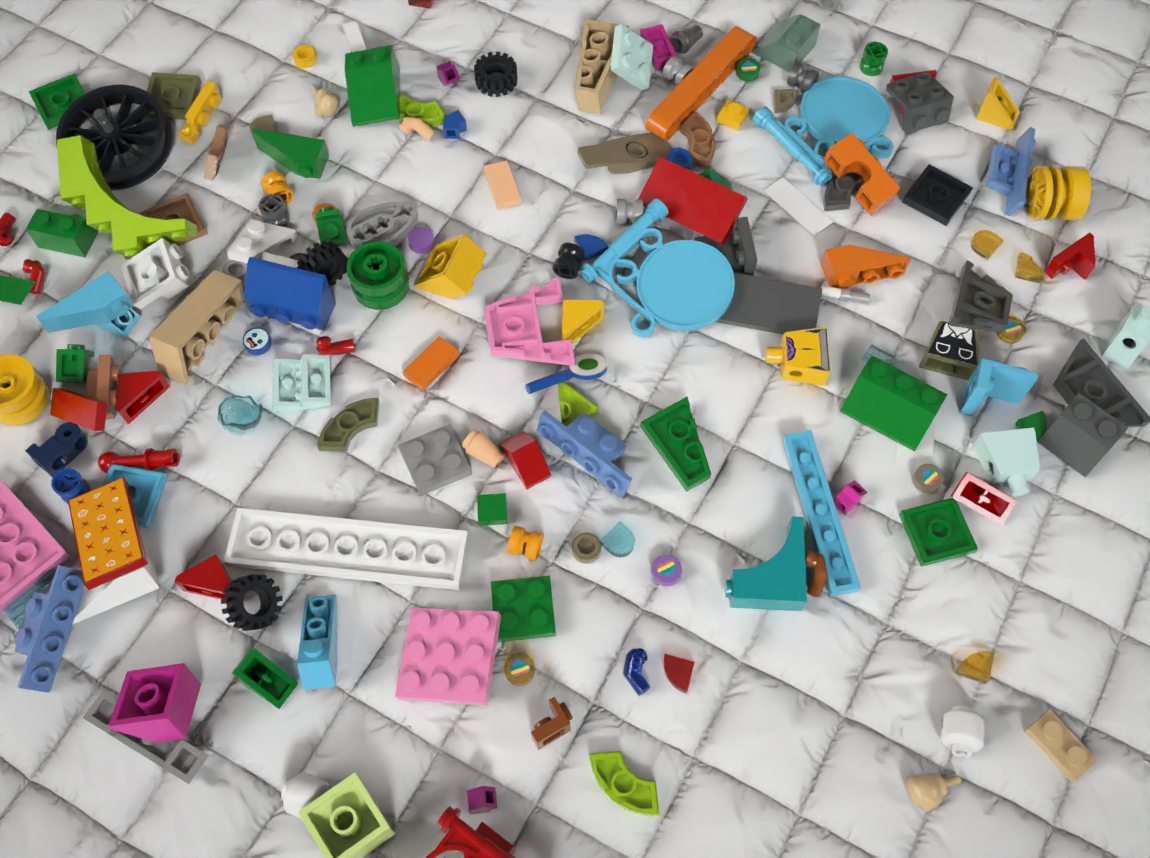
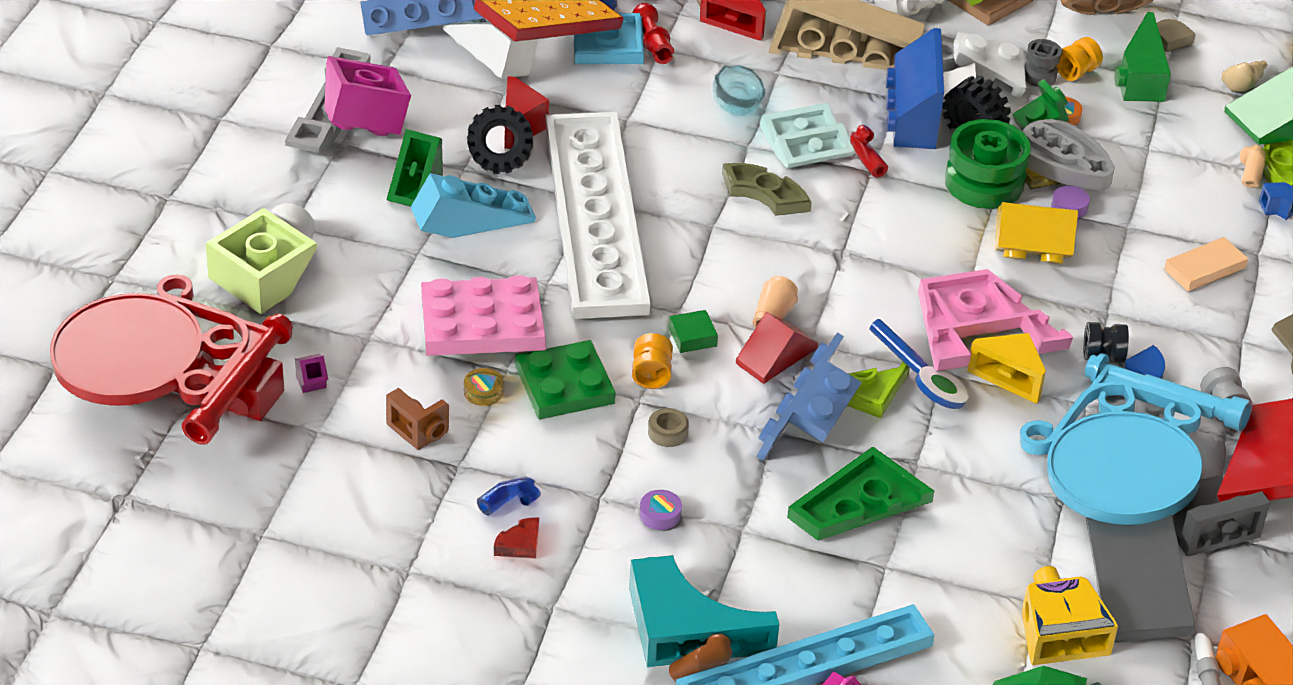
camera: 75 degrees right, 20 degrees down
(257, 341) = (849, 91): tile -> none
(431, 363) = (883, 242): orange tile -> none
(435, 459) = (742, 267): light grey plate -> none
(619, 541) = (690, 458): clear light blue tile -> none
(624, 786) = (357, 502): lime tile -> none

